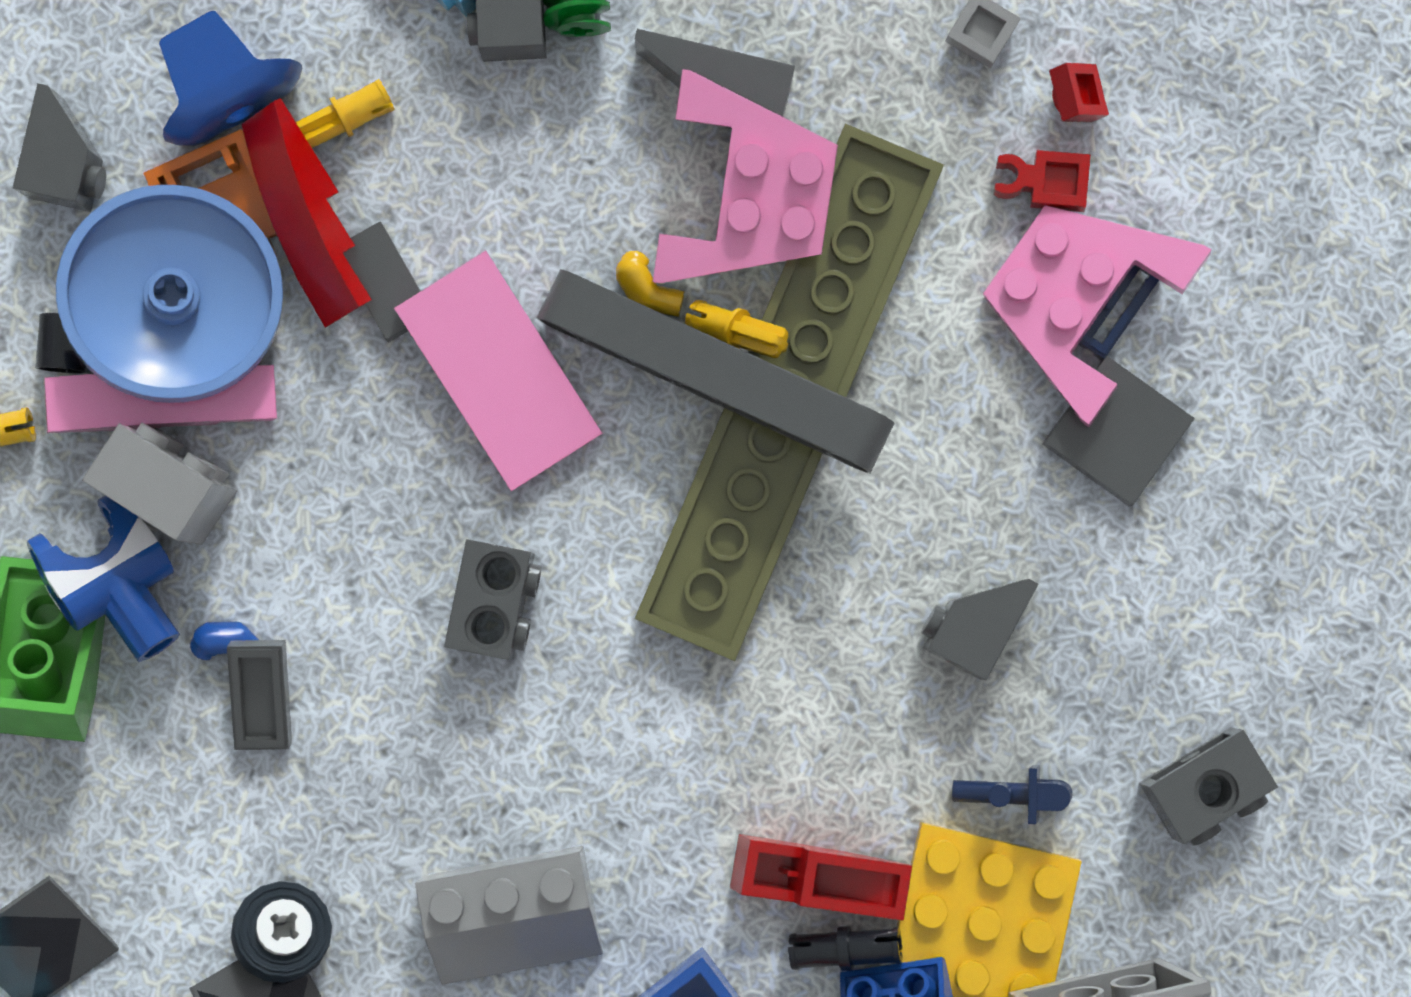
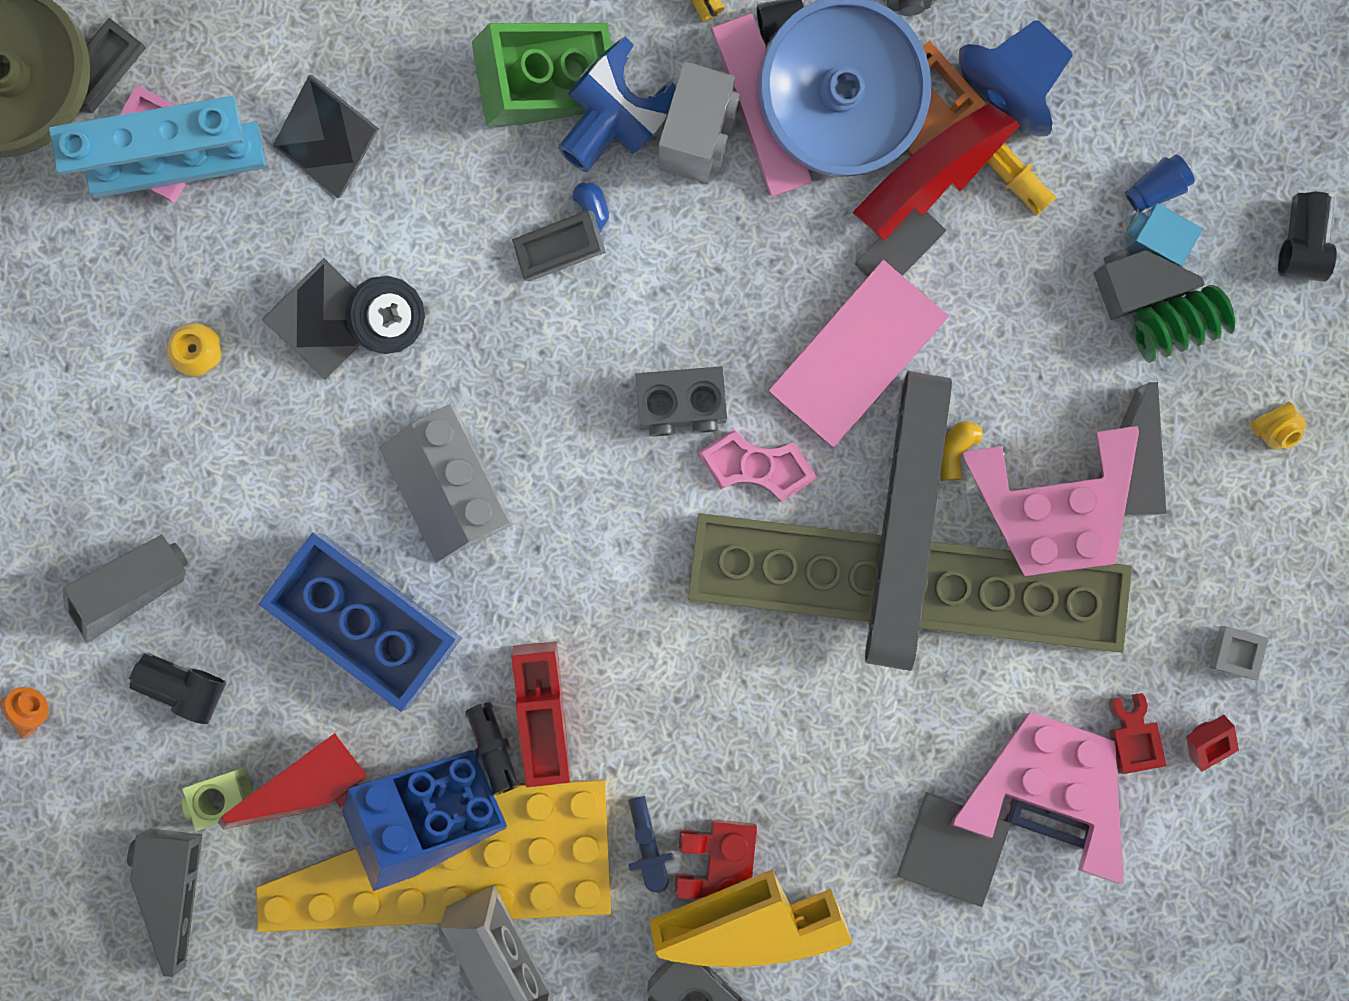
camera: 70 degrees right, 0 degrees up
(609, 508) = (737, 461): none -> bright pink tile
(738, 329) = (946, 529): yellow axle -> none
(977, 626) = (768, 781): dark grey slope -> none
(1065, 703) = (729, 858): none -> red plate
(1141, 699) = (750, 926): none -> yellow slope

